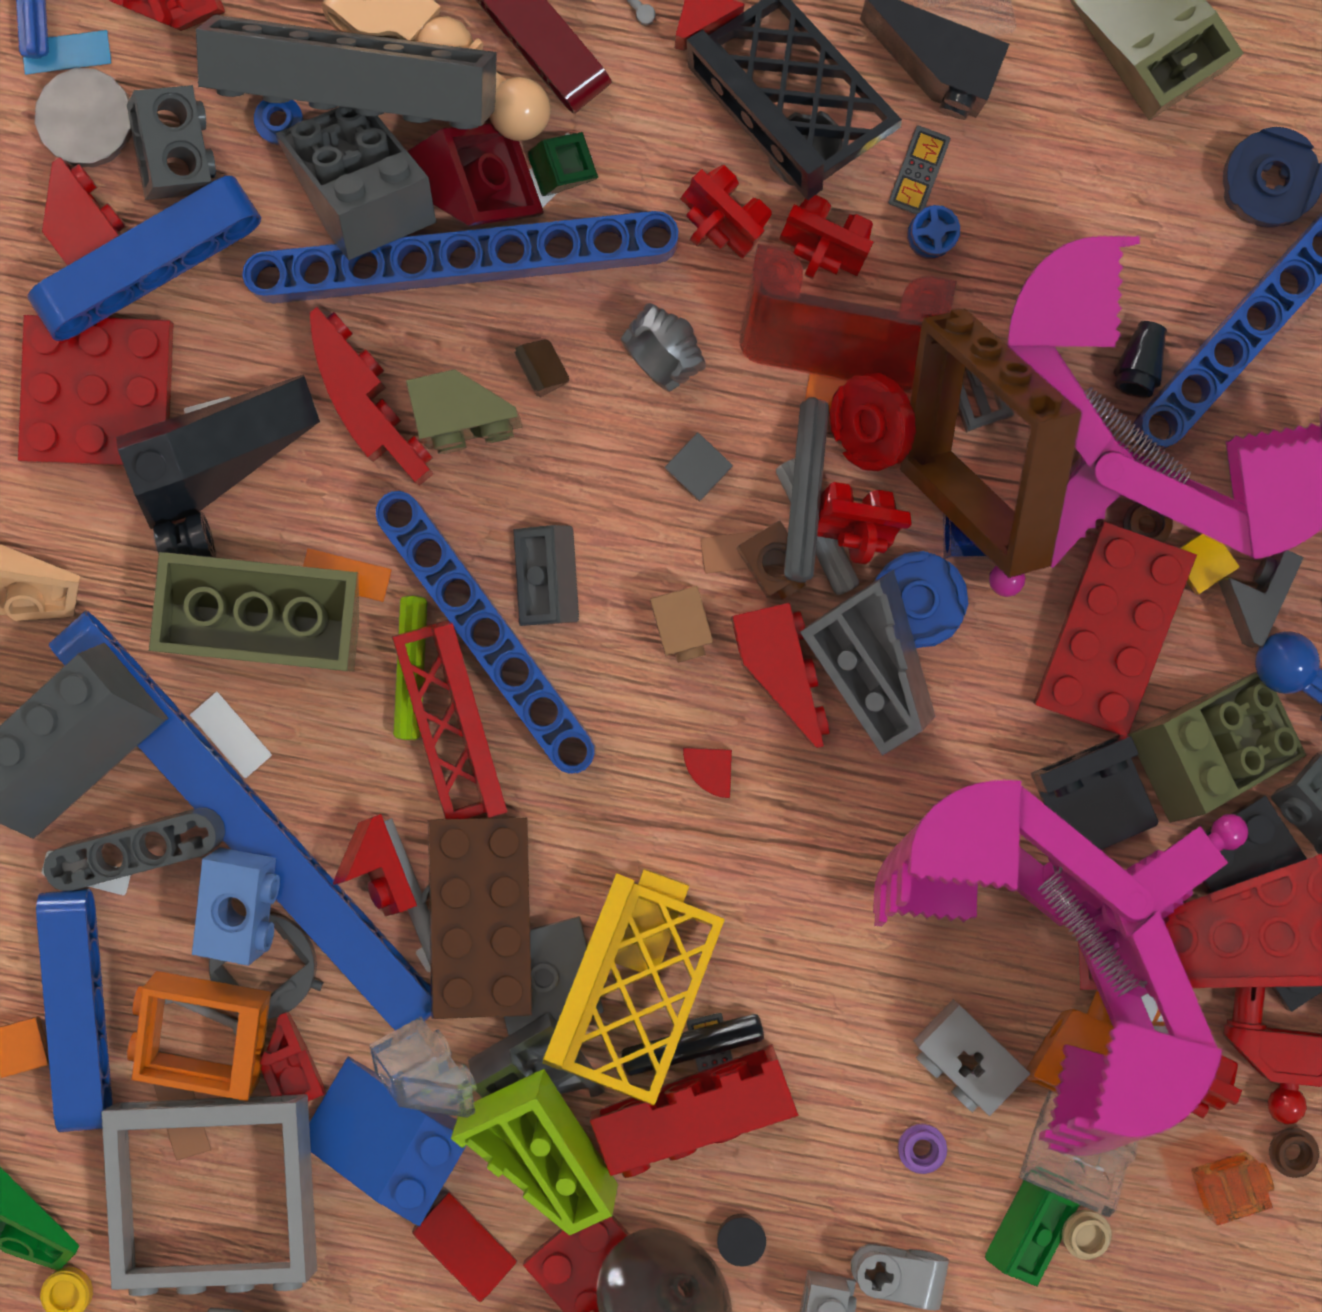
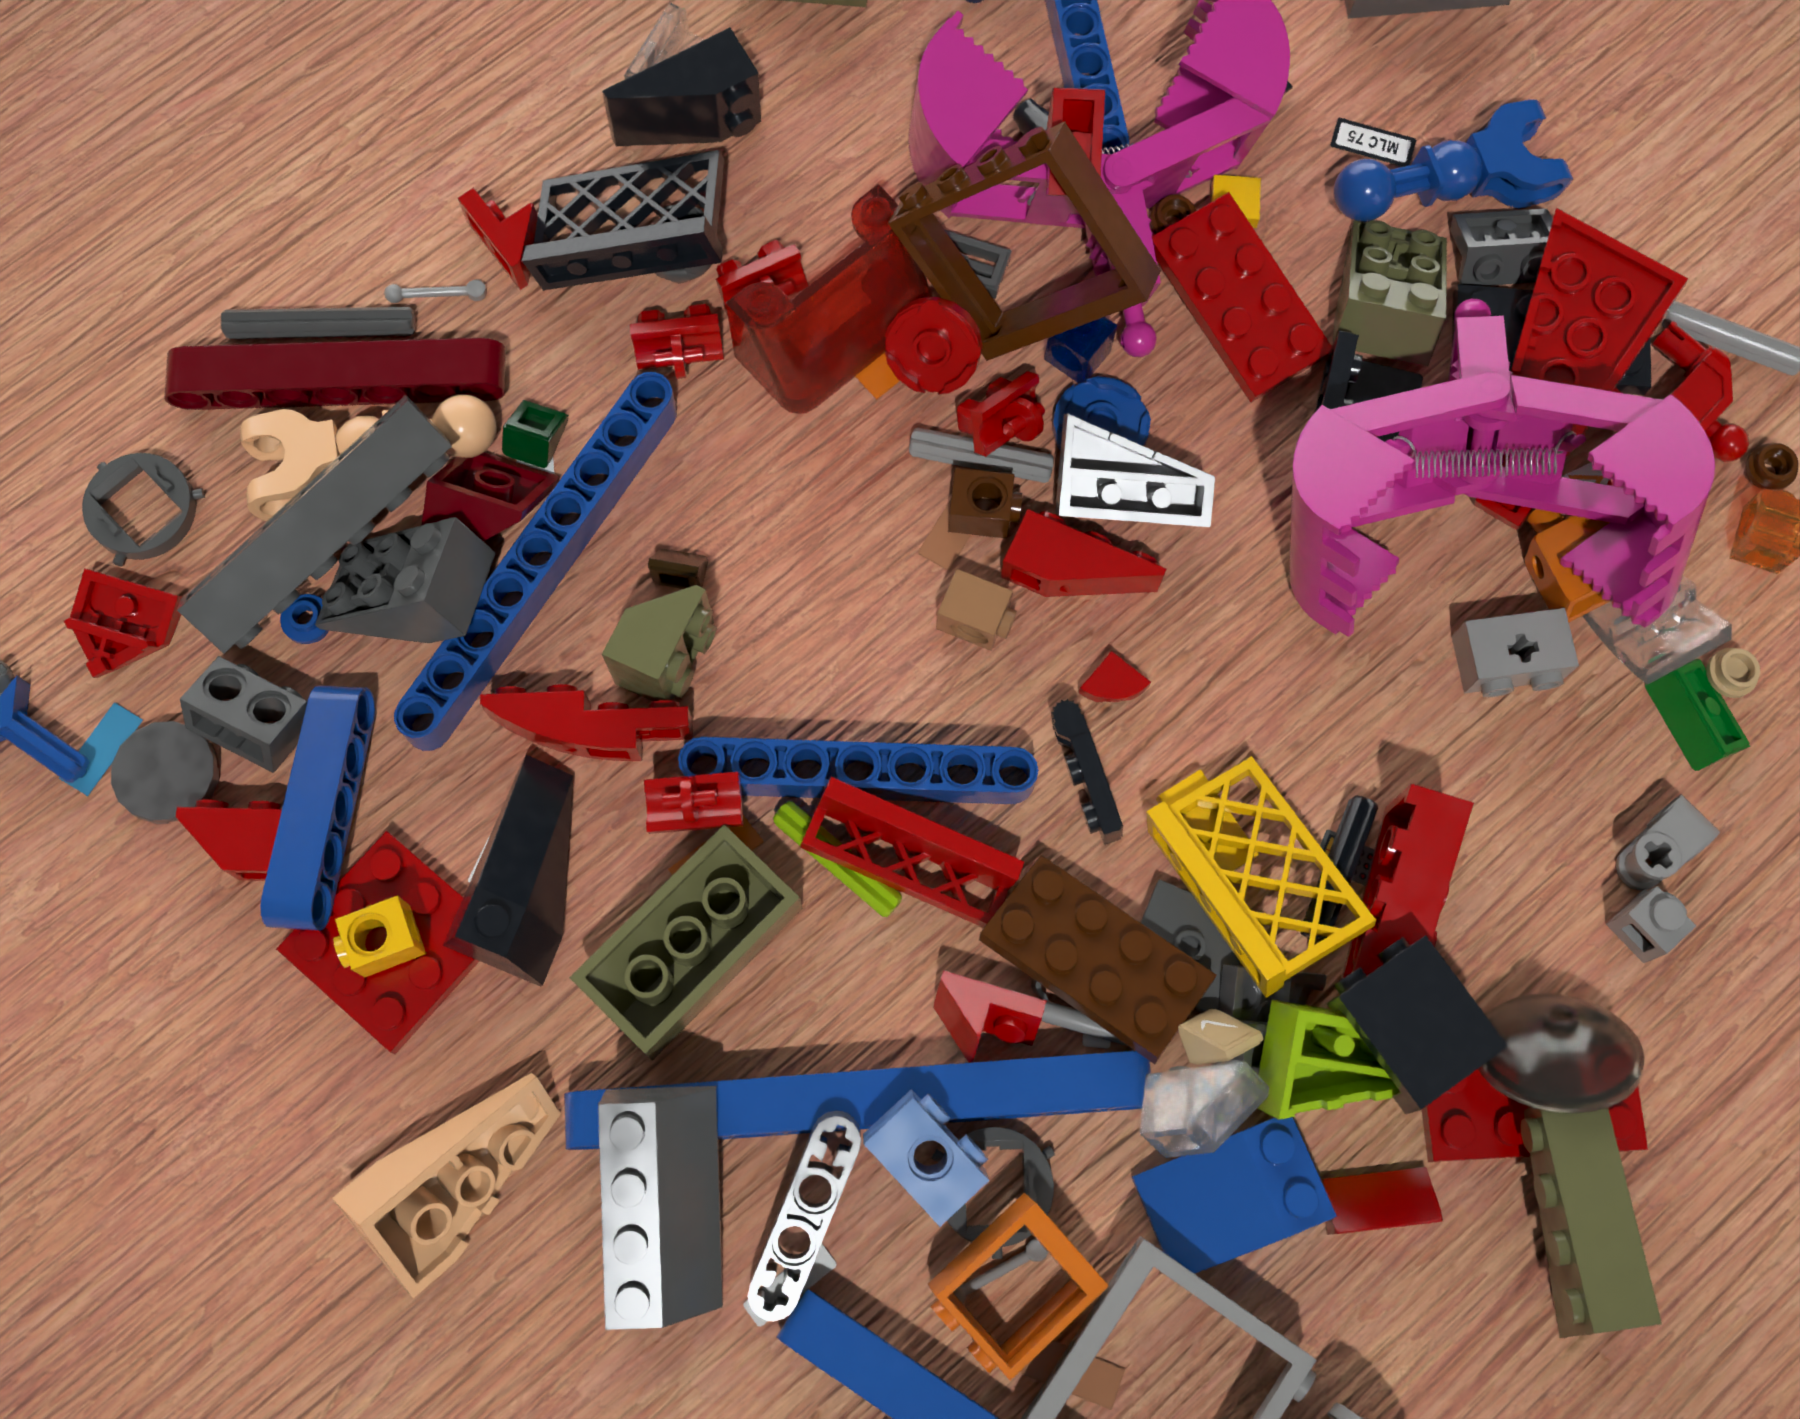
camera: 55 degrees left, 15 degrees down
(103, 393) = (401, 944): none -> yellow brick
(185, 538) = (574, 951): black wheel -> none
(230, 735) = (771, 1057): white sticker -> none
(288, 1063) = (1100, 1233): red slope -> none
(358, 534) = (693, 802): none -> red hips
(483, 1050) = (1216, 1037): none -> tan slope
(546, 575) = (848, 692): dark grey slope -> none
(596, 1187) = (1417, 1021): none -> black panel
(620, 801) = (1086, 768): none -> black hinge
(663, 347) = (743, 458): flat silver hair -> none
(698, 467) = (859, 509): dark grey tile -> none
(741, 1240) = (1541, 956): black tile -> none
(806, 490) = (948, 433): dark grey axle -> none
(919, 170) = (766, 187): sticker -> none
(928, 1162) = (1577, 742): medium lavender plate -> none
(942, 229) = (819, 193): blue wheel -> none
(1107, 415) = (1084, 116): none -> red slope
(1257, 609) = (1299, 182): dark grey slope -> none

